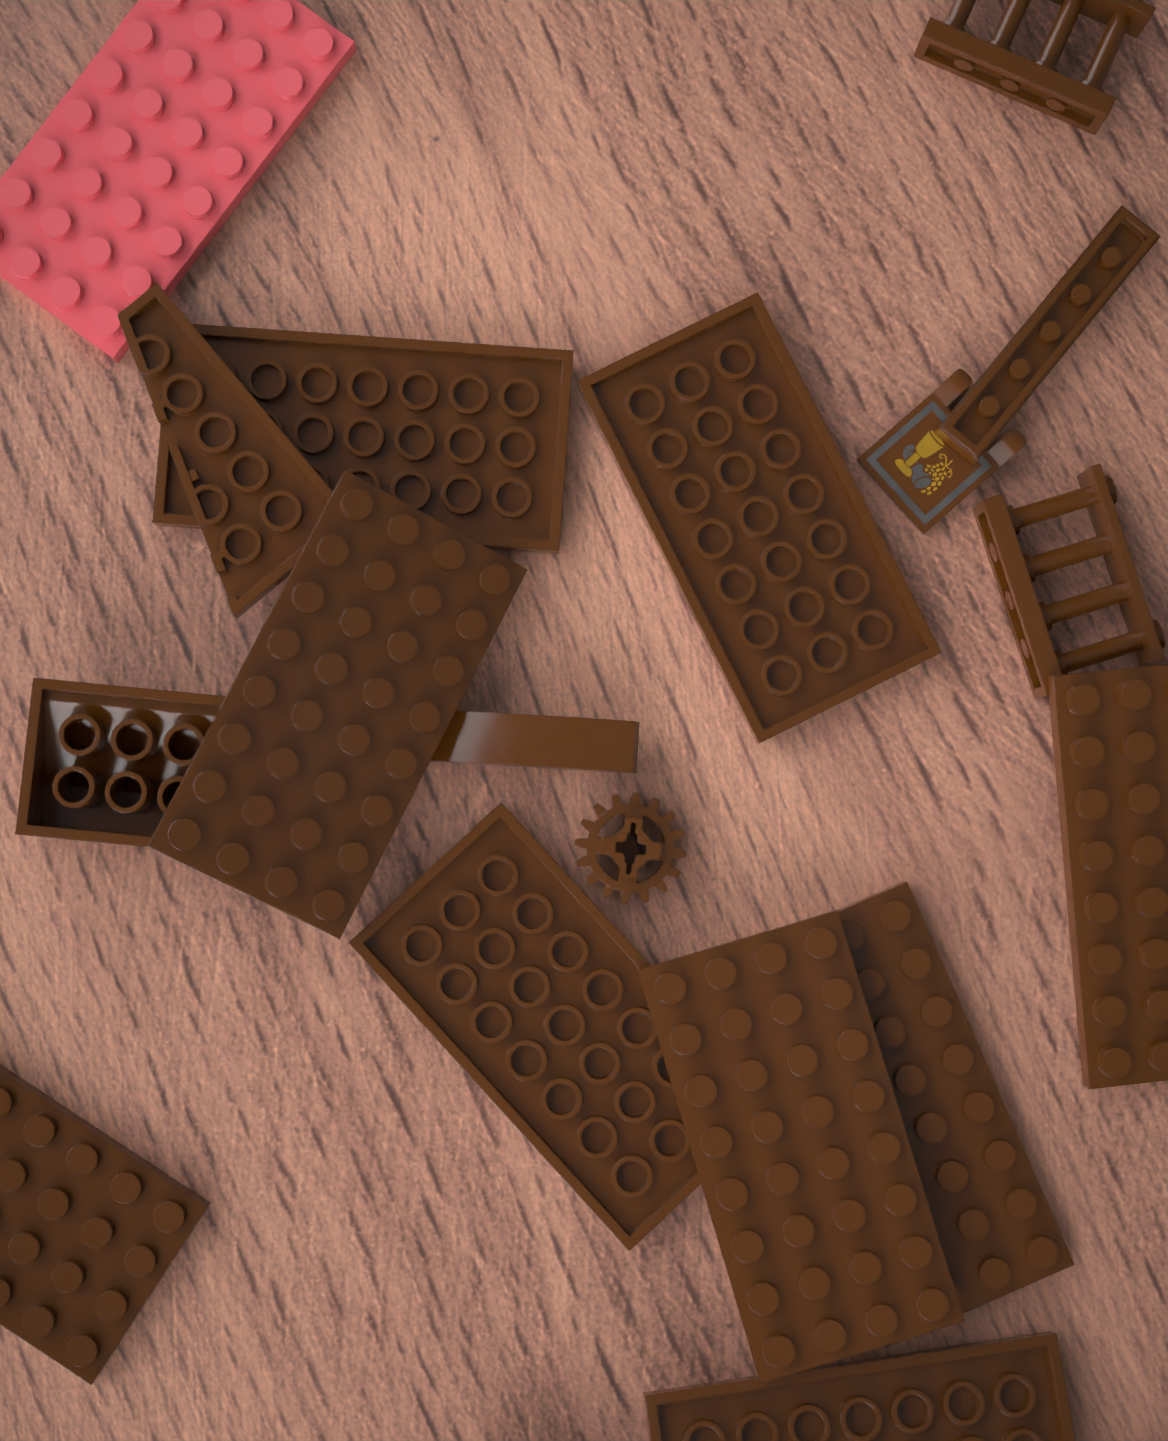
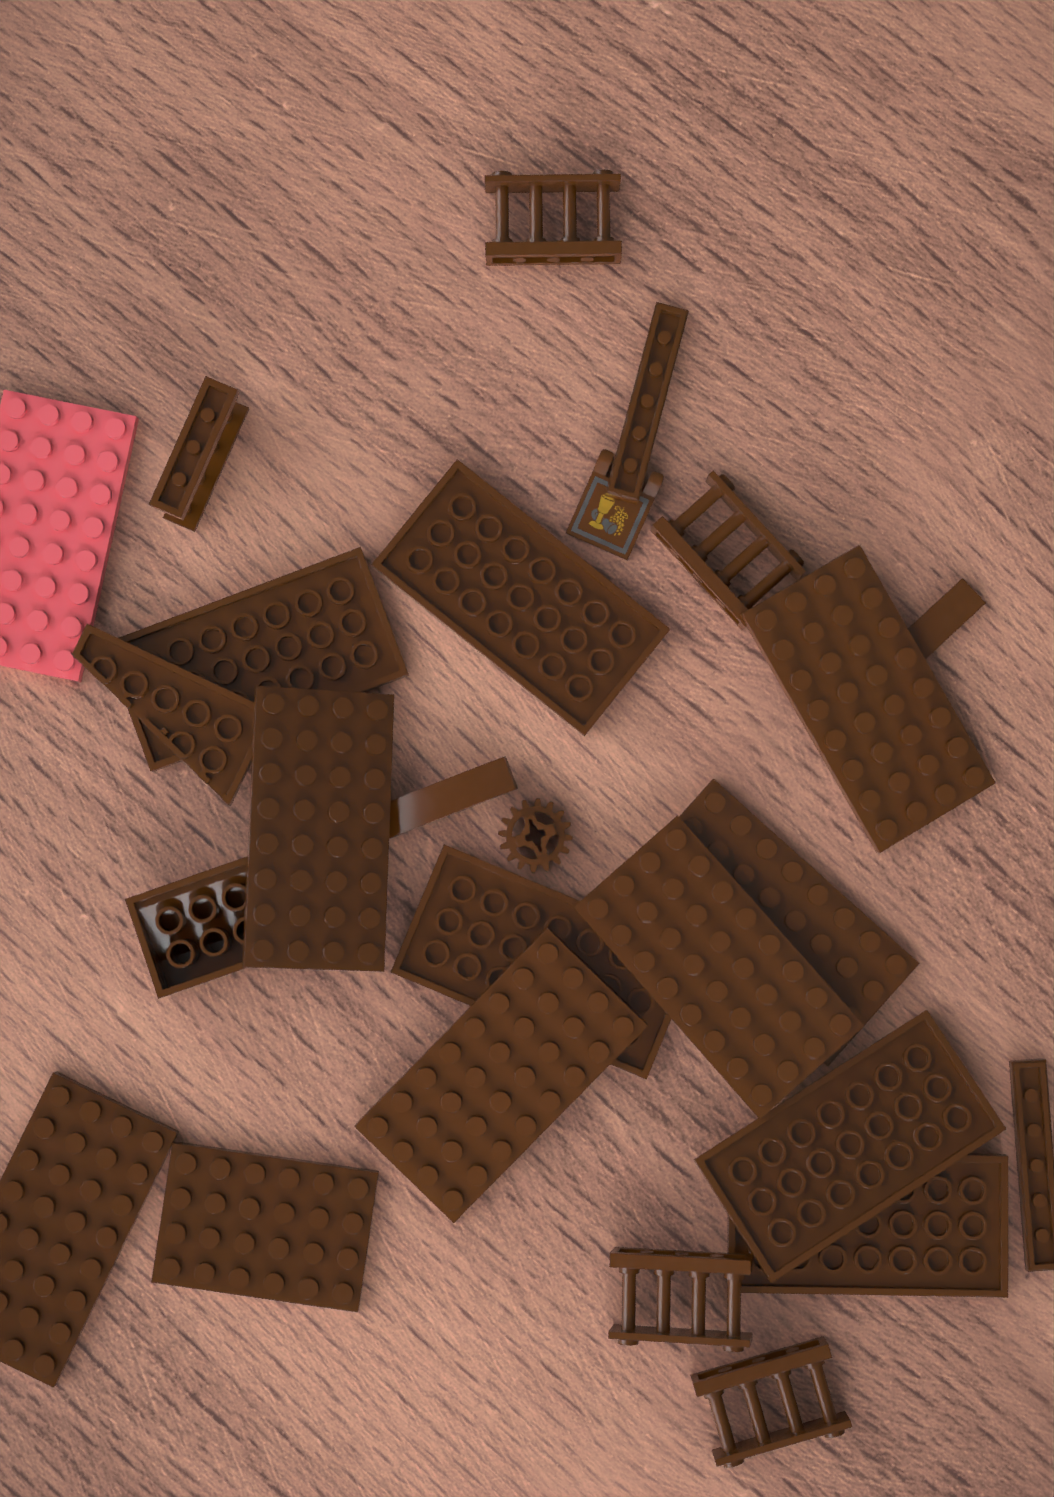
camera: 20 degrees left, 0 degrees up
(413, 122) = (199, 454): none -> reddish brown fence
(434, 1152) = (501, 1075): none -> reddish brown plate

